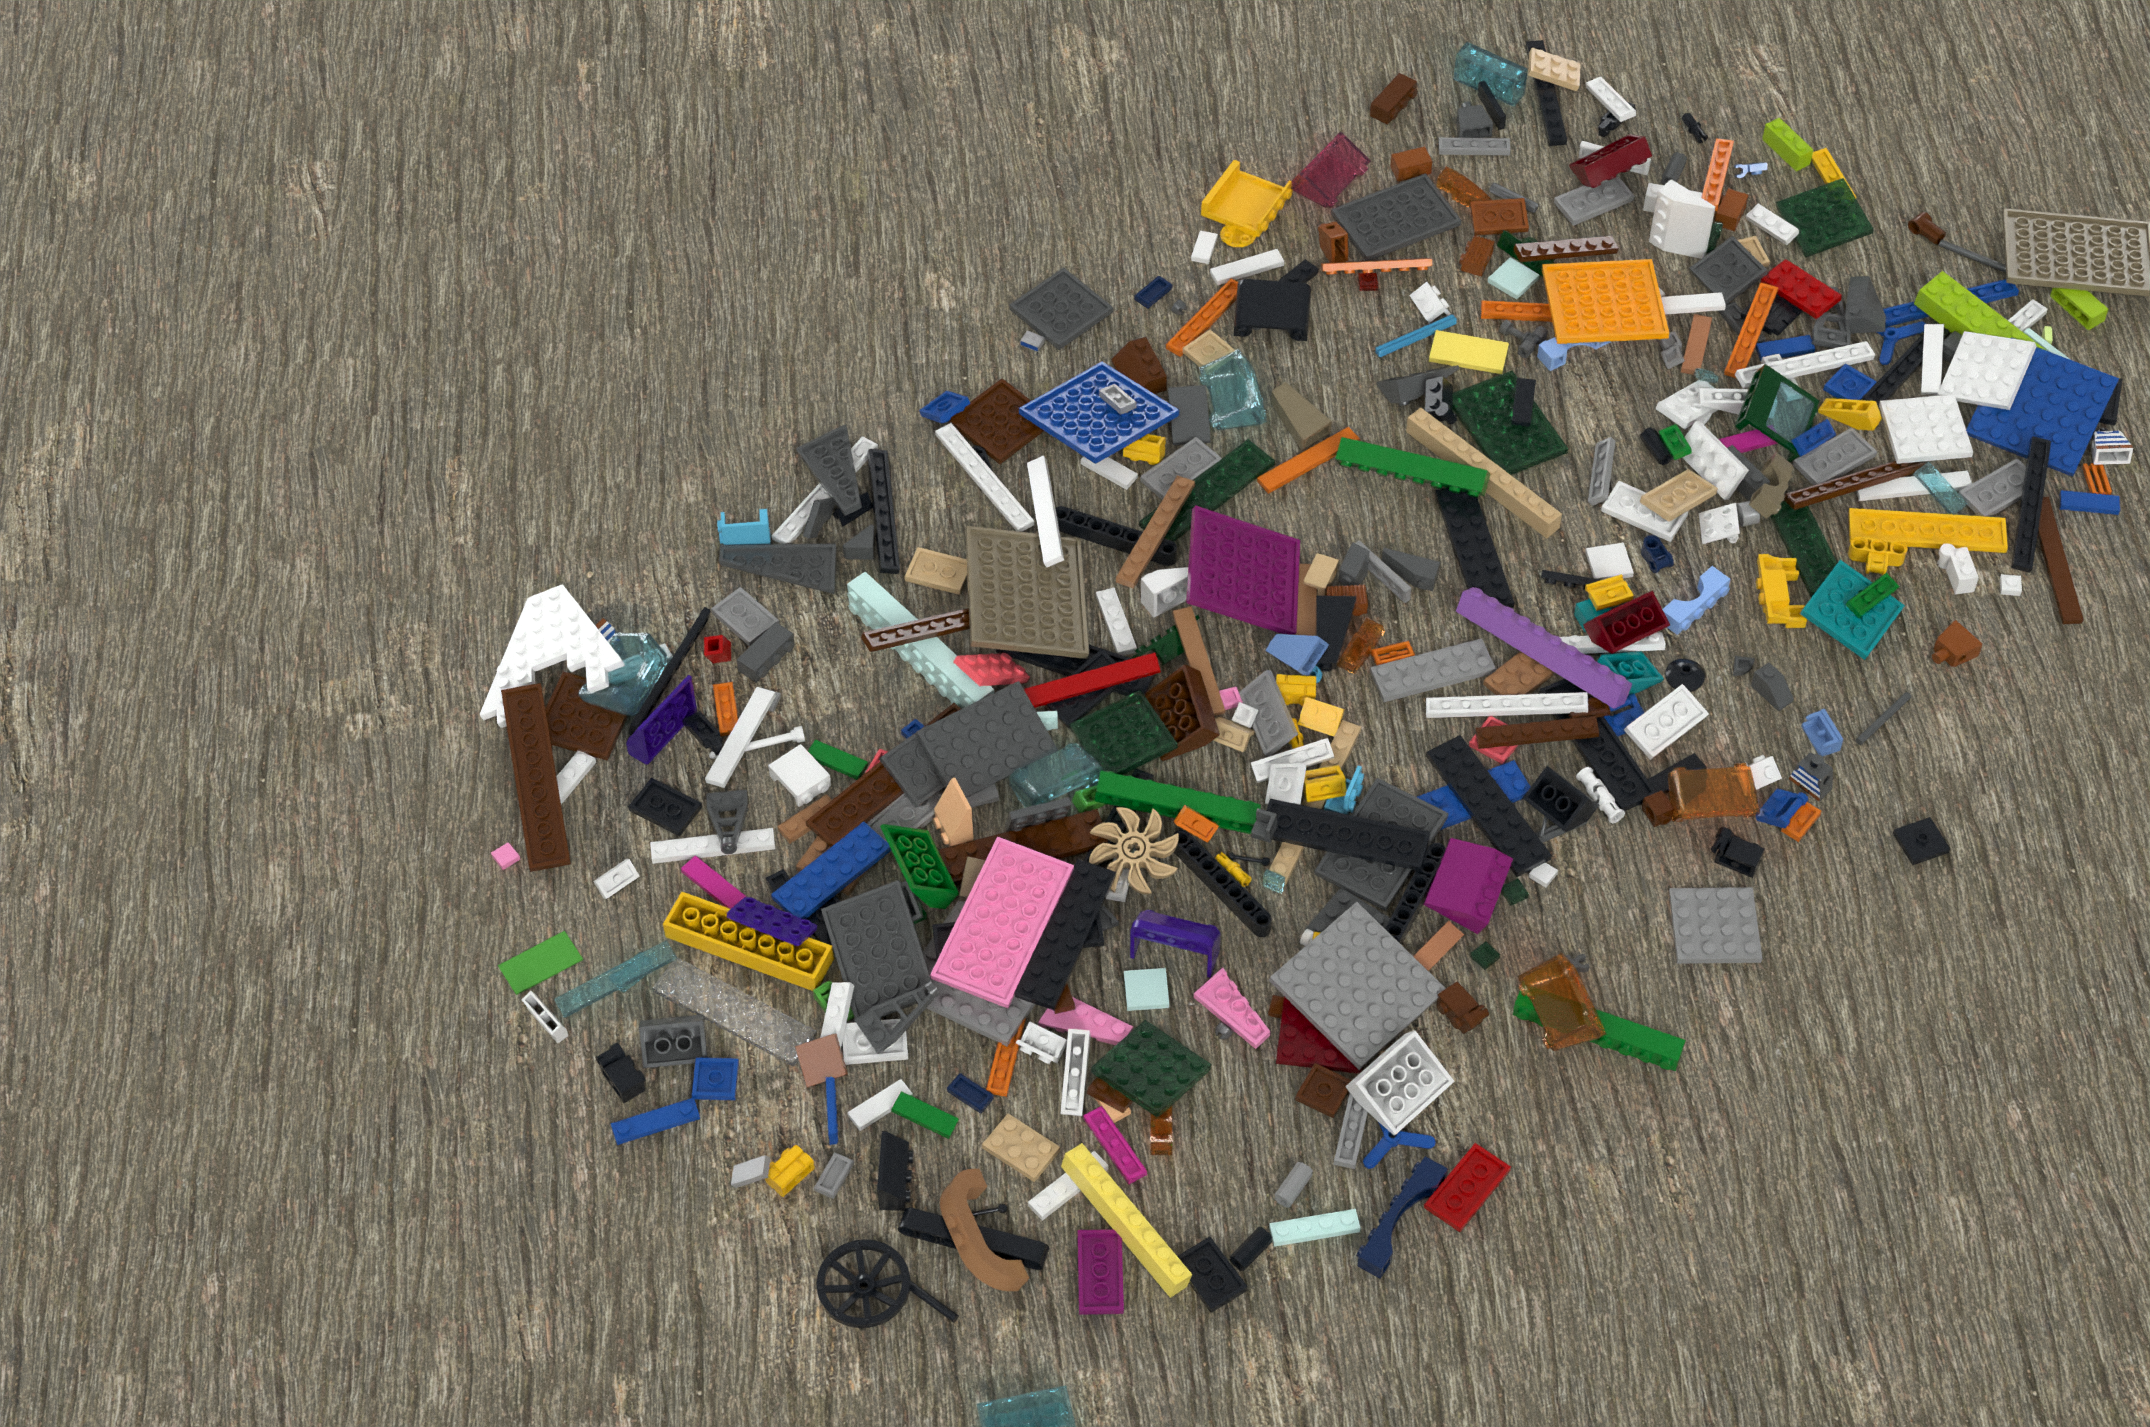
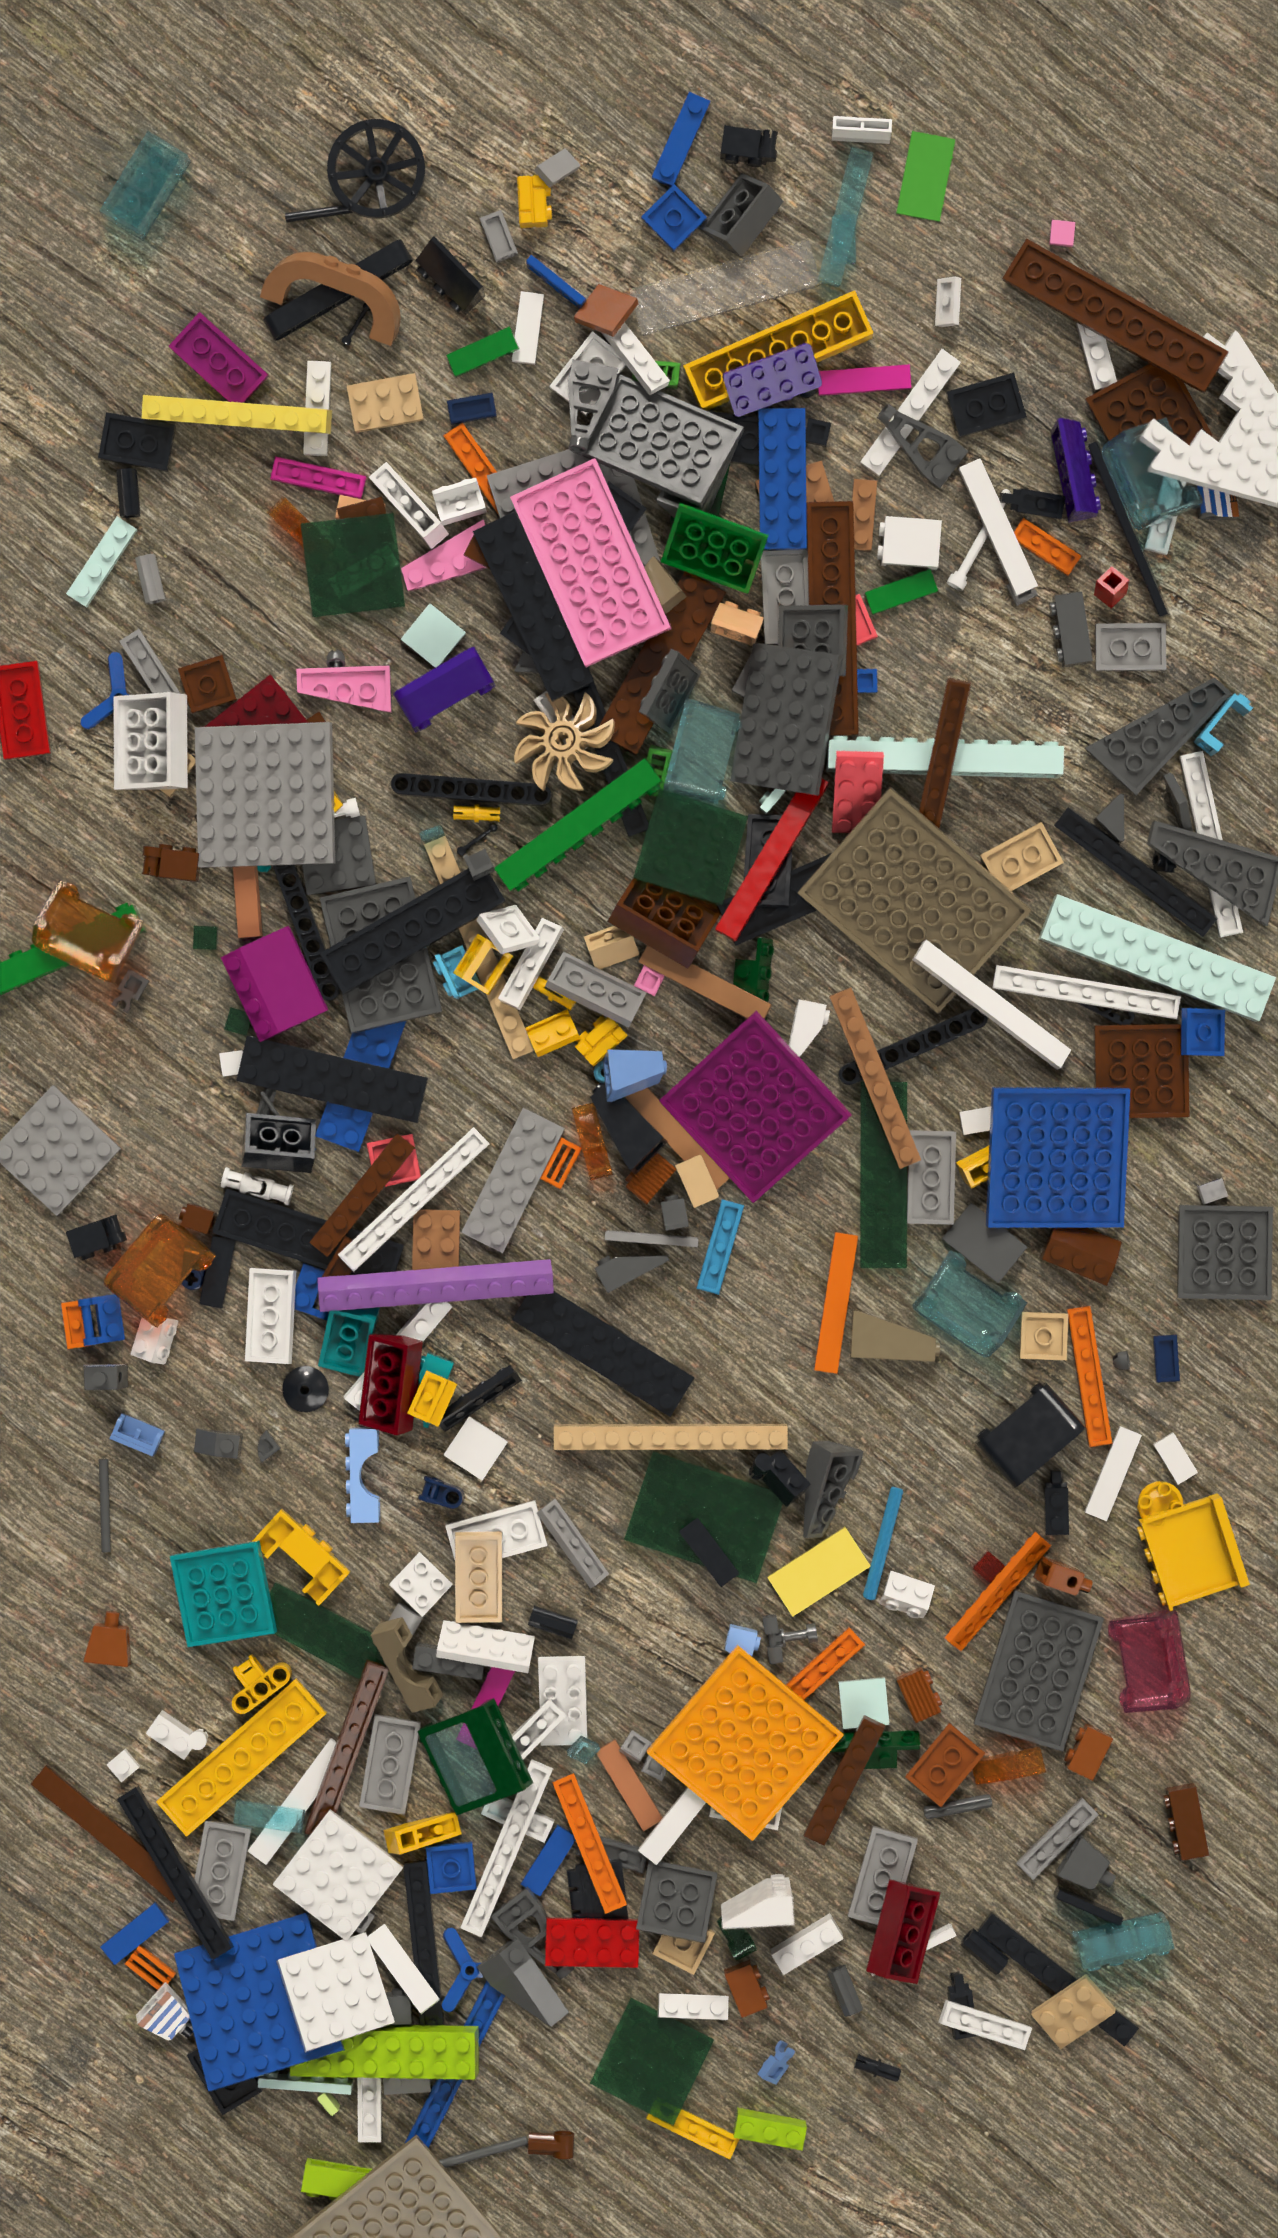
camera: 130 degrees right, 35 degrees up
(925, 461) = (1157, 958): none -> light aqua brick
(1116, 621) = (821, 961): white plate -> none
(1117, 399) = (1050, 1181): light grey plate -> none
(1196, 823) = (542, 818): orange plate -> none
(1245, 715) = (616, 972): white tile -> none
(1344, 538) = (720, 1247): none -> dark azure tile
(1378, 1251) = (55, 679): dark blue arch -> none
(1412, 466) = (730, 1374): green brick -> none
(1573, 128) = (984, 1951): none -> black axle
(1675, 442) = (533, 1633): green plate -> none
(1717, 171) = (796, 2019): orange plate -> none
(1813, 437) = (423, 1765): blue tile -> none
(1872, 595) = (216, 1623): green tile -> none

